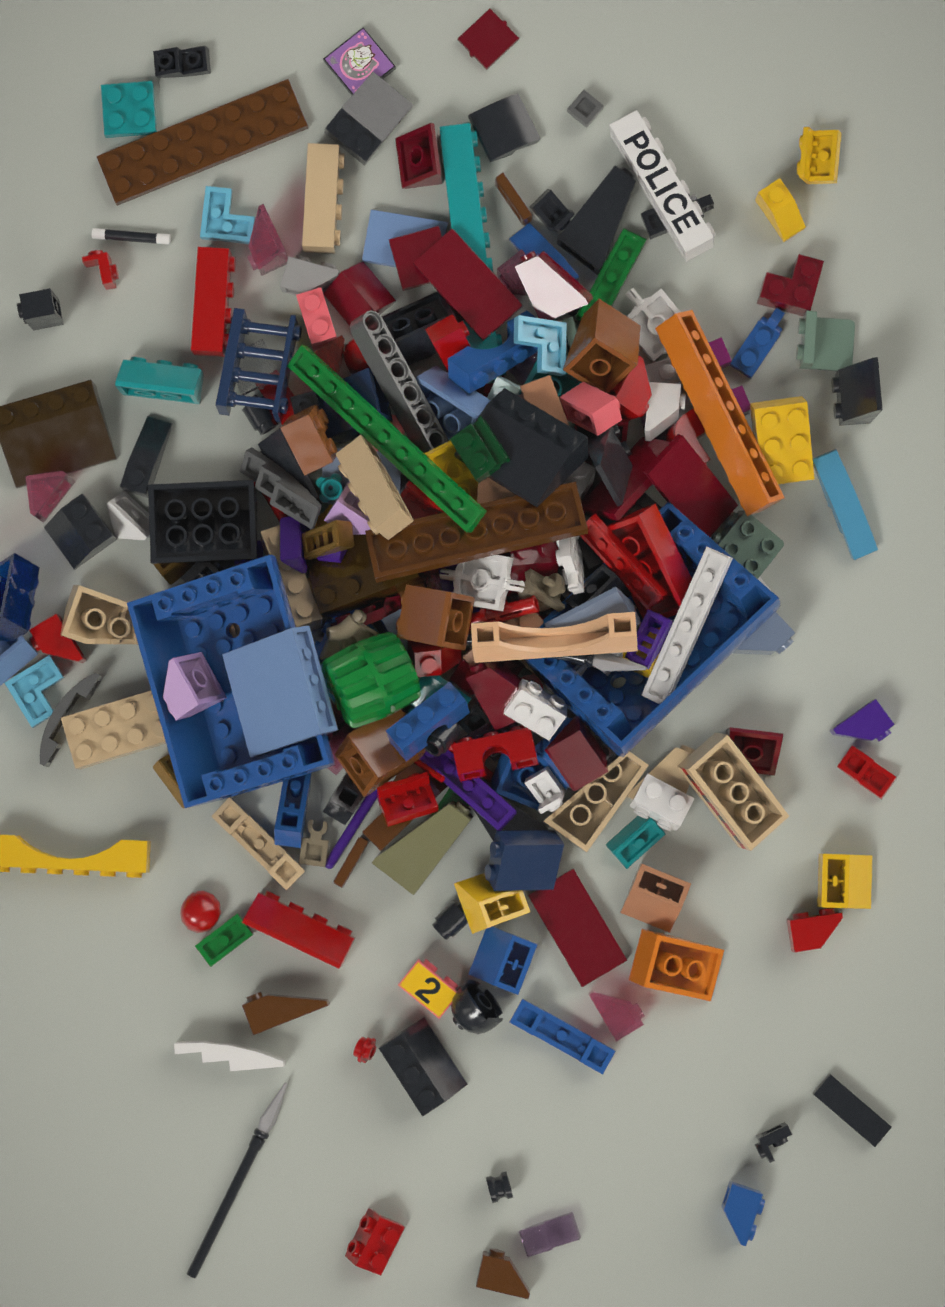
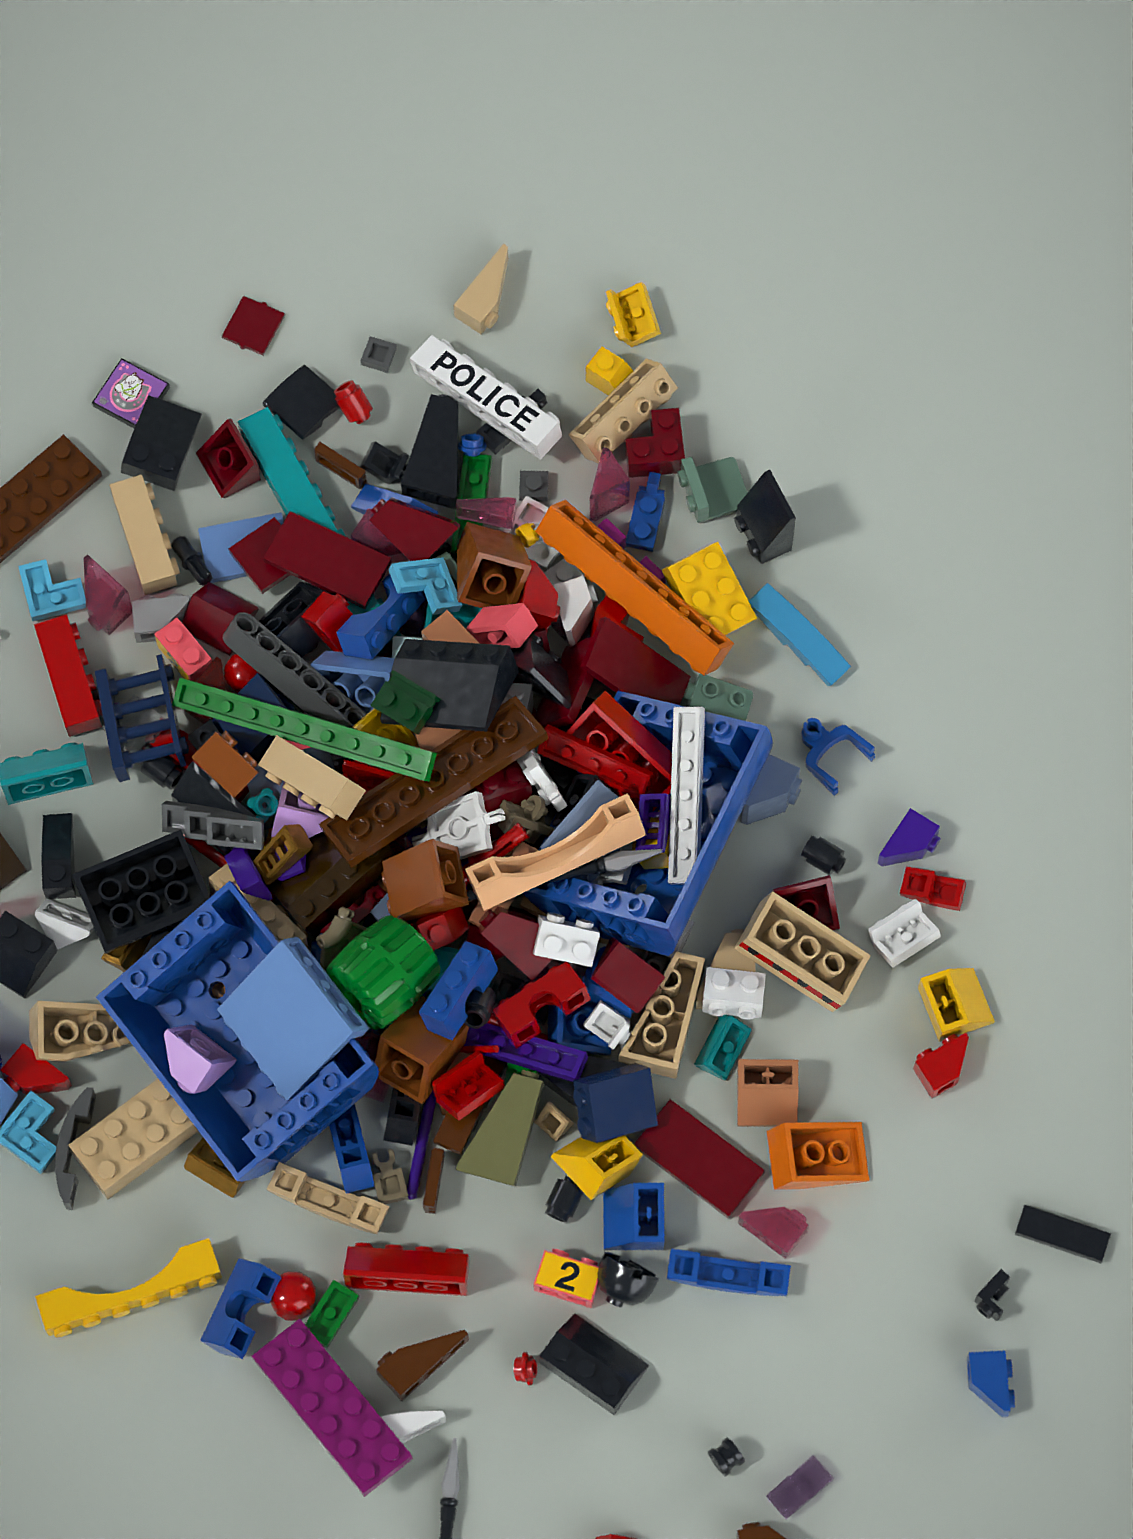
camera: 25 degrees left, 15 degrees down
(135, 920) = (247, 1286): none -> blue arch
(193, 1023) = (332, 1407): none -> magenta plate
(354, 237) = (191, 560): none -> black axle
(470, 848) = (553, 1121): none -> tan slope
(546, 145) = (353, 402): none -> red brick
(627, 295) = (489, 511): none -> clear pink slope
(633, 223) = (472, 444): none -> blue plate
(647, 326) = (527, 534): none -> yellow hinge
(672, 280) = (534, 485): none -> dark grey plate
(693, 92) = (481, 300): none -> tan slope
(736, 309) = (609, 488): none -> clear pink slope
(775, 244) = (624, 410): none -> tan brick
(786, 709) = (823, 855): none -> black brick
(825, 804) = (903, 933): none -> white bracket
(827, 607) = (822, 741): none -> blue piece

